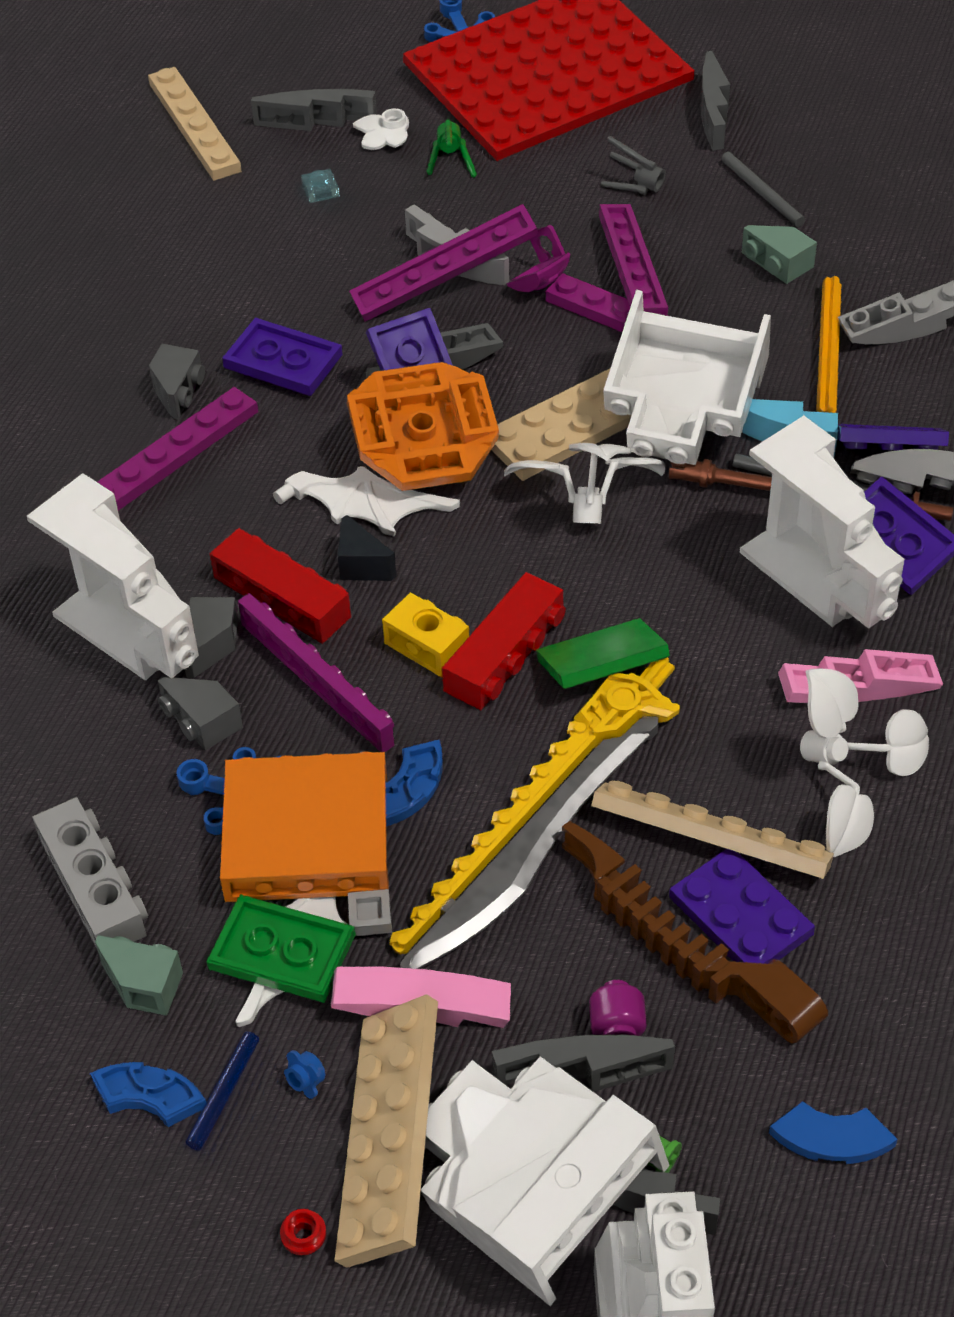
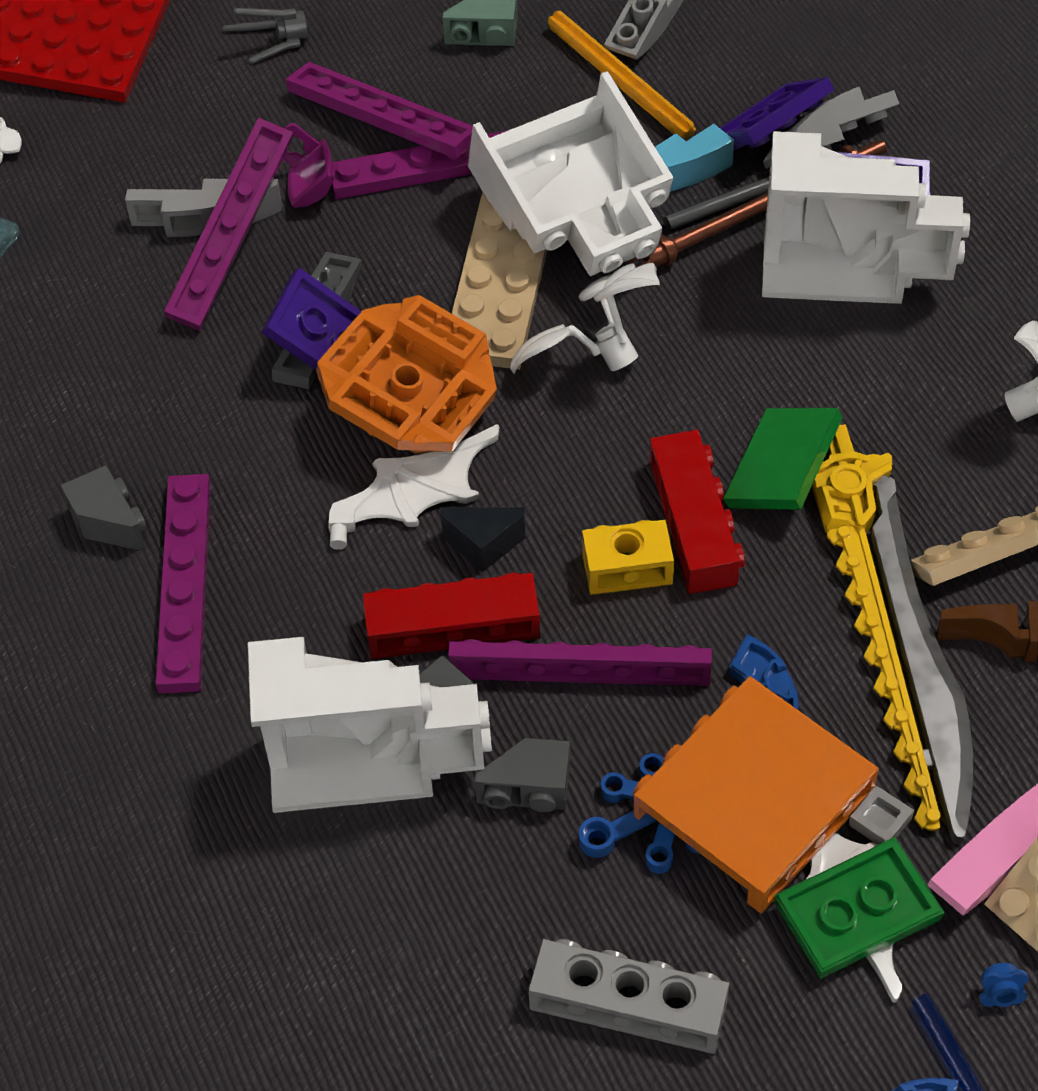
camera: 45 degrees left, 5 degrees up
(141, 972) = (779, 1034): sand green slope -> none
(282, 356) = (176, 415): dark purple plate -> none
(449, 141) = (67, 111): green plant -> none
(875, 675) = (979, 327): bright pink slope -> none

